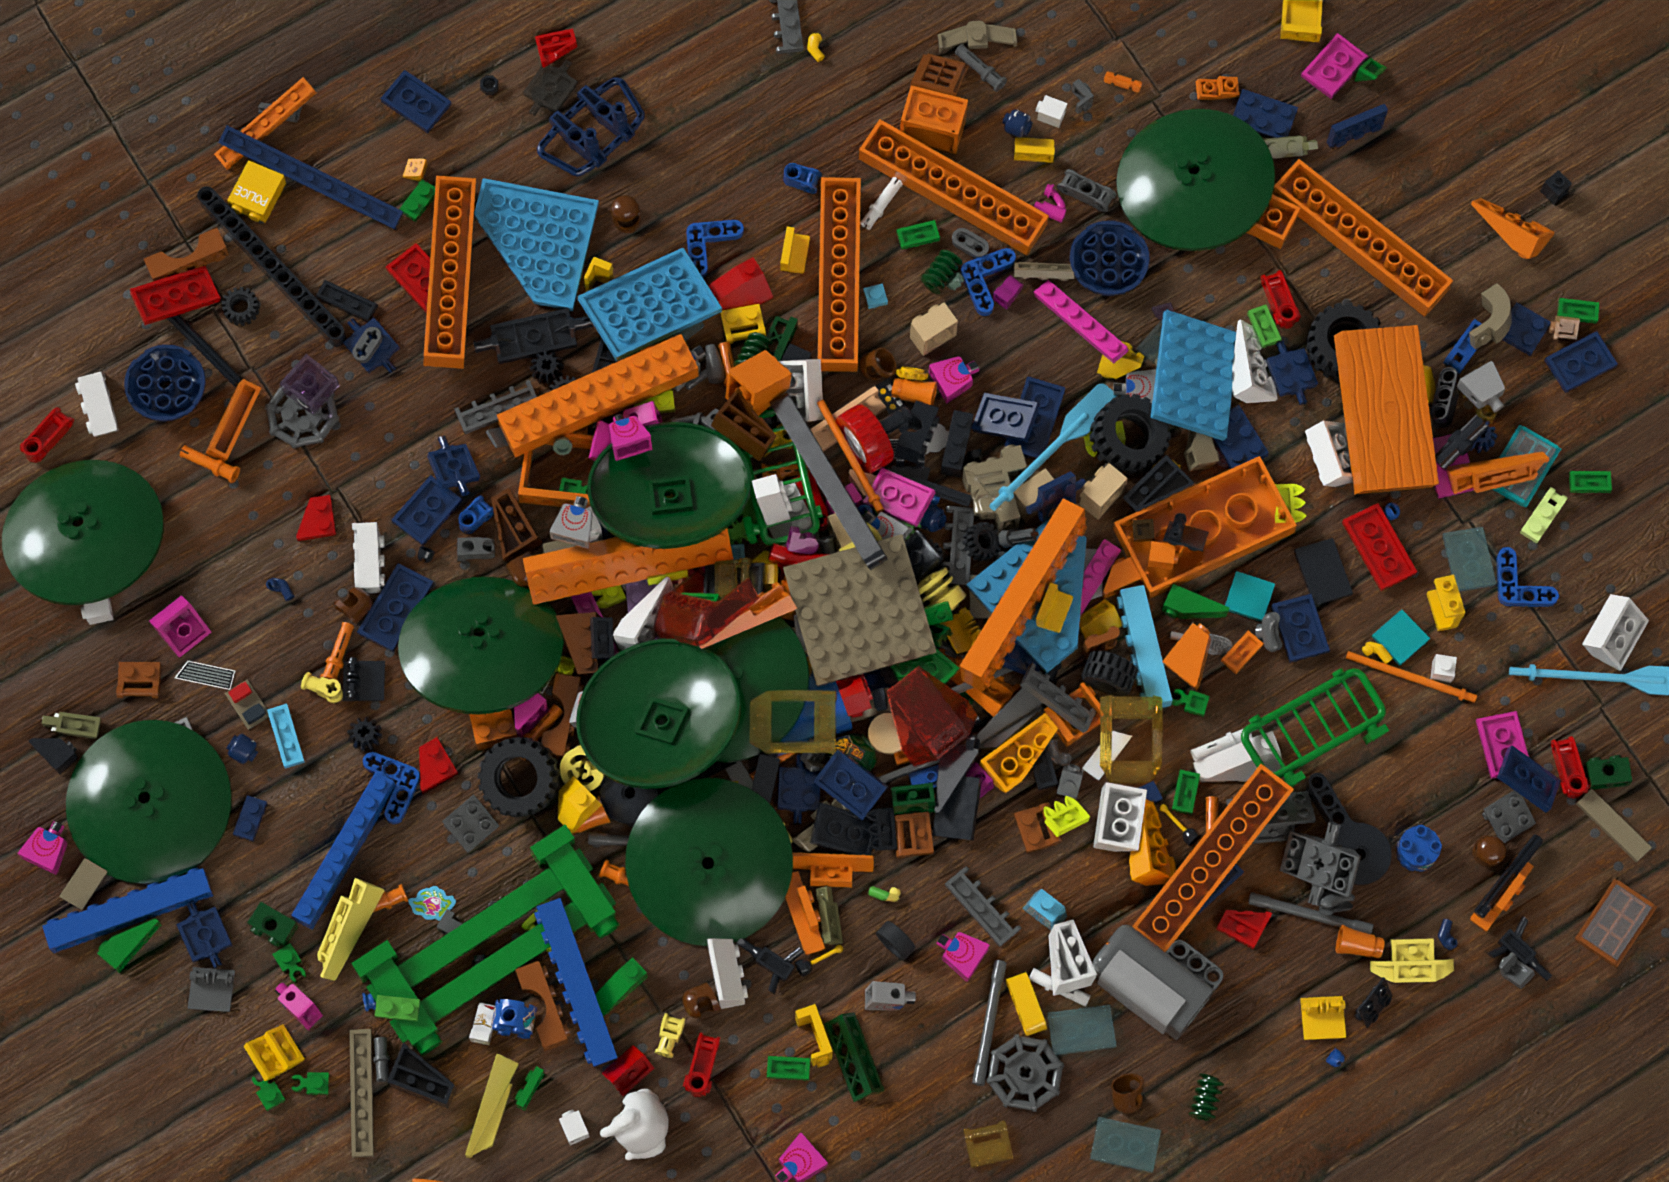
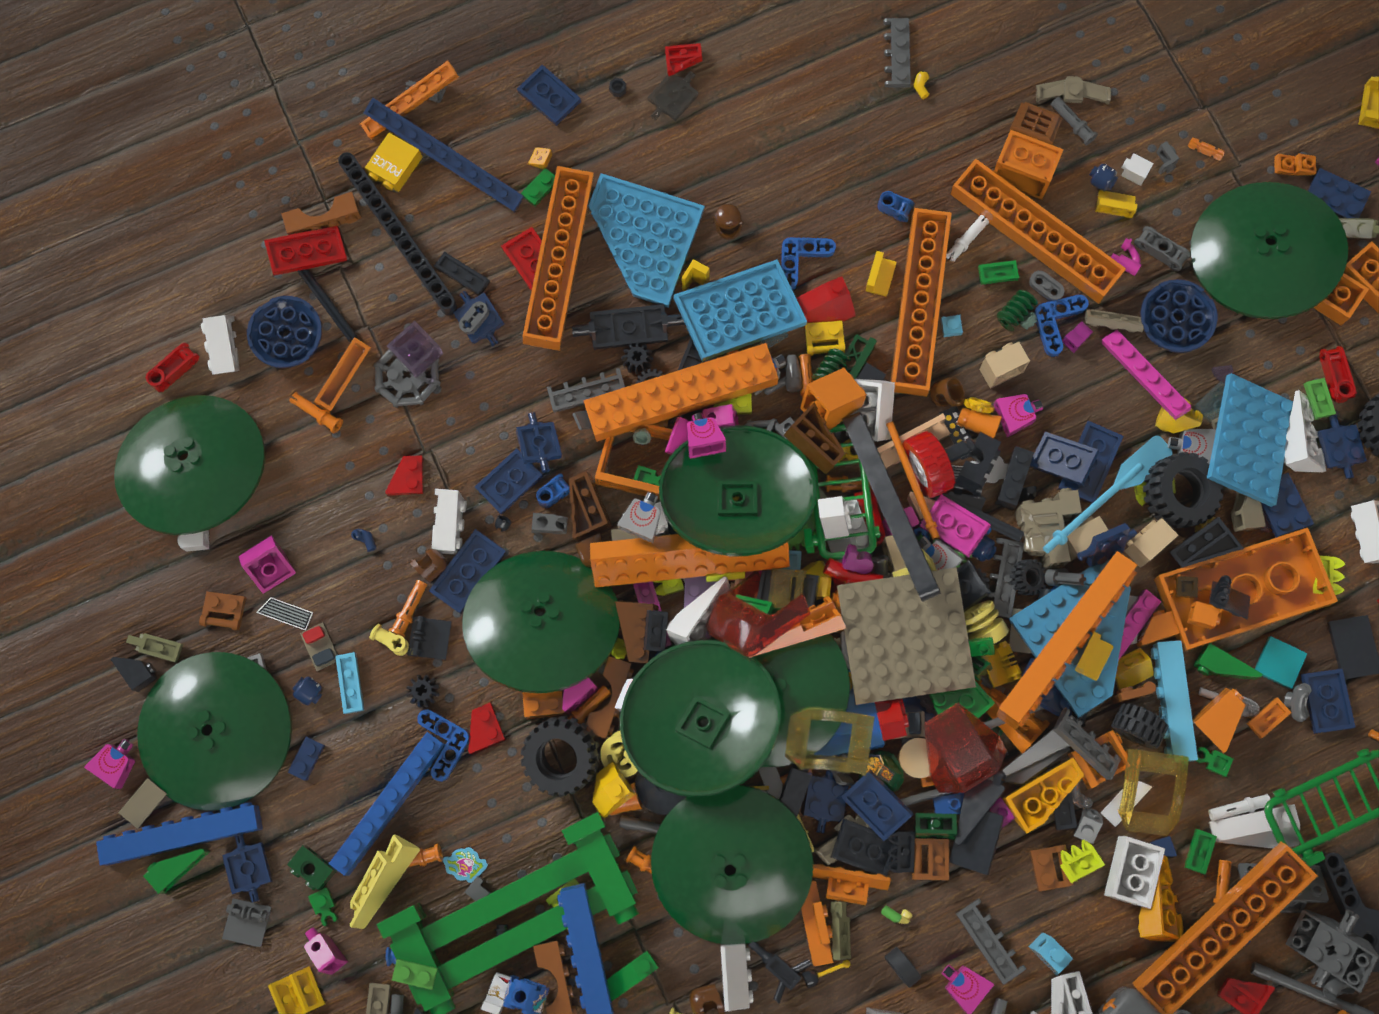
camera: 15 degrees right, 5 degrees up
(245, 316) = (360, 258): black tyre -> none
(470, 823) = (510, 792): dark grey hinge -> none
(588, 143) = (701, 152): dark blue piece -> none
(1190, 835) = (1199, 896): hinge -> none

